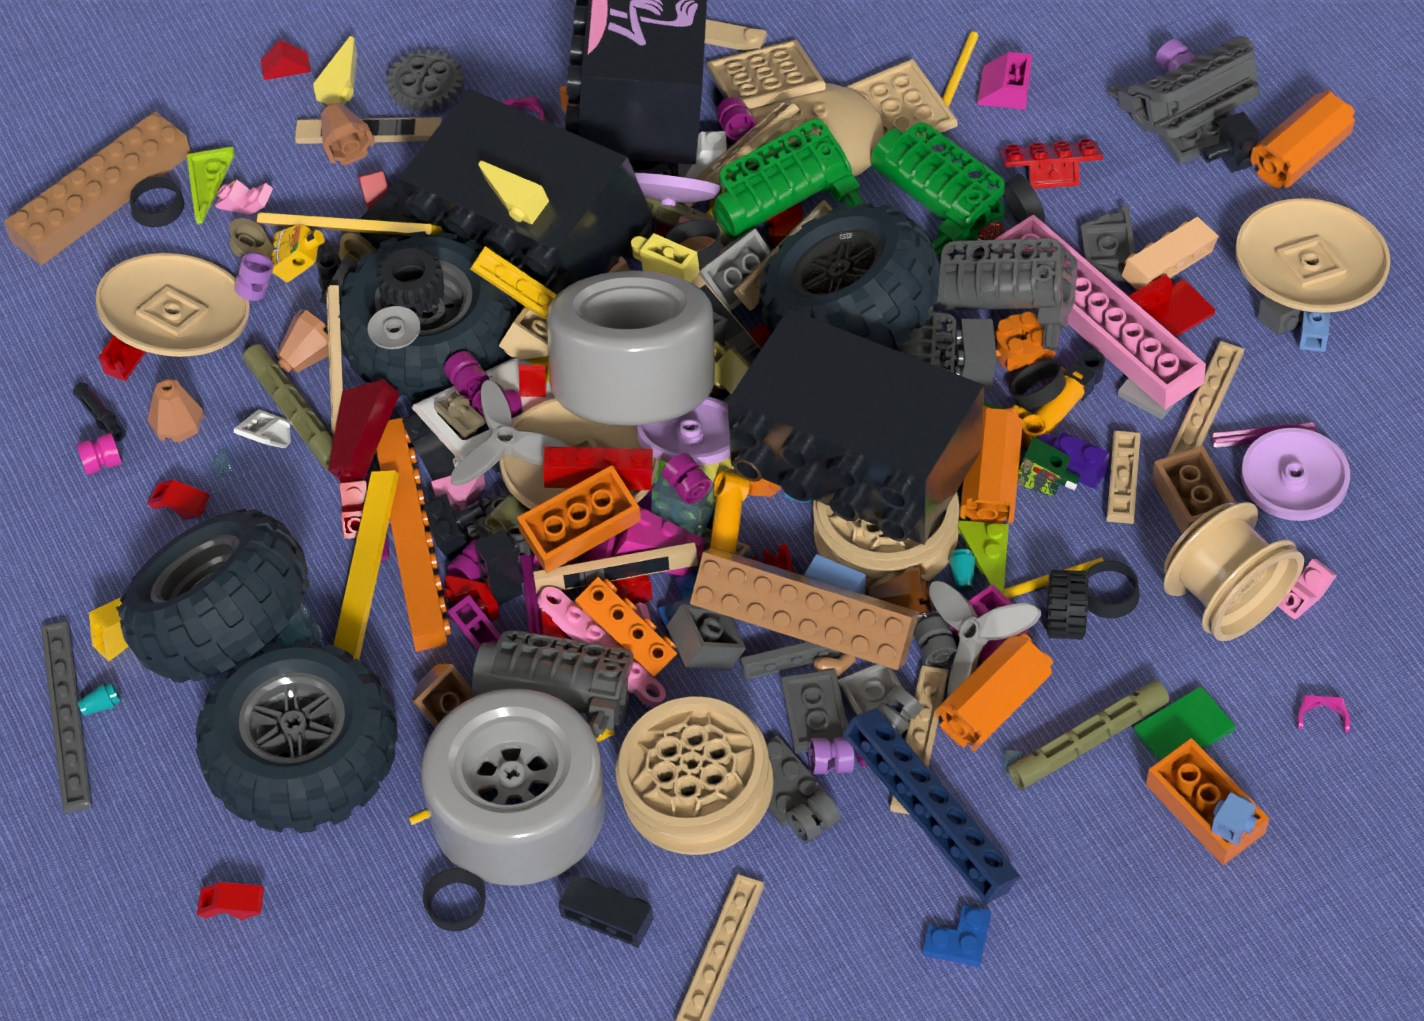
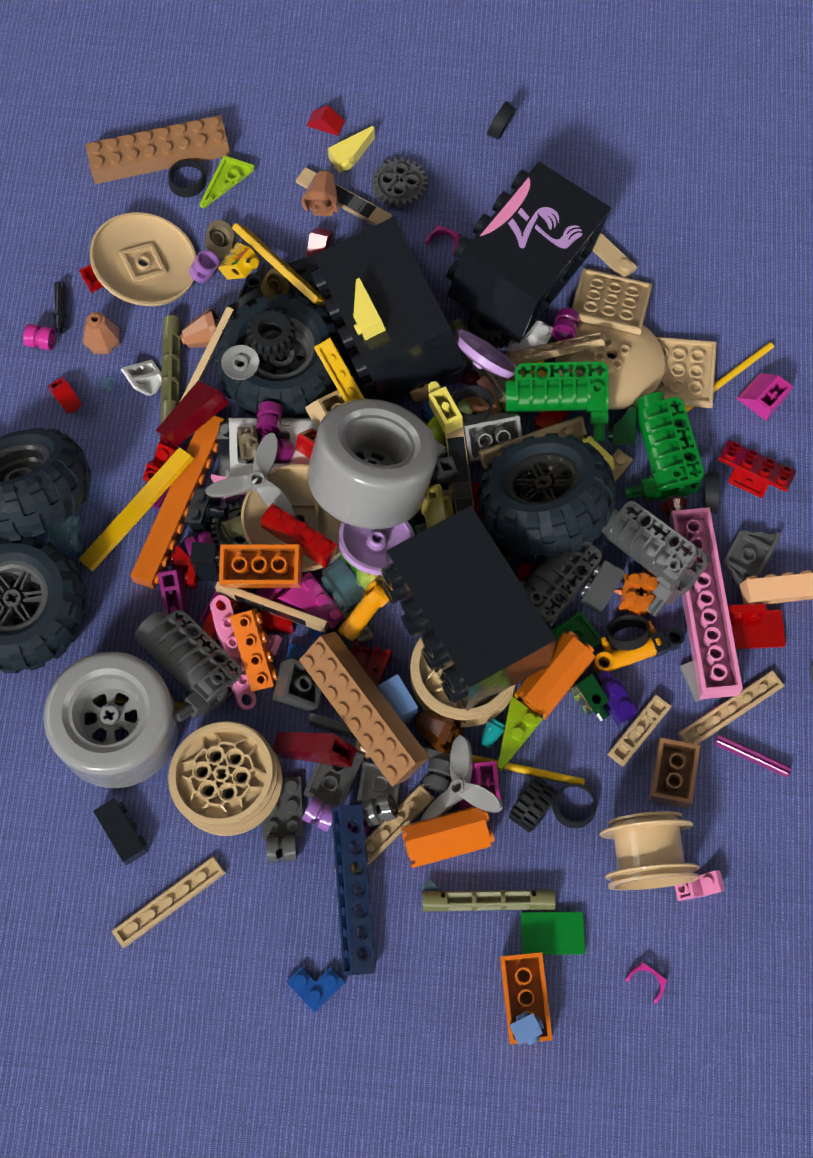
camera: 30 degrees right, 15 degrees up
(241, 199) = (237, 204): bright pink slope -> none
(441, 692) = (120, 627): medium nougat slope -> none
(449, 877) = (25, 758): black tyre -> none
(687, 479) = (343, 578): magenta wheel -> none
(779, 684) = (315, 747): none -> dark red slope
(878, 186) = (624, 428): none -> dark green slope
(1295, 474) = (750, 800): lavender dish -> none

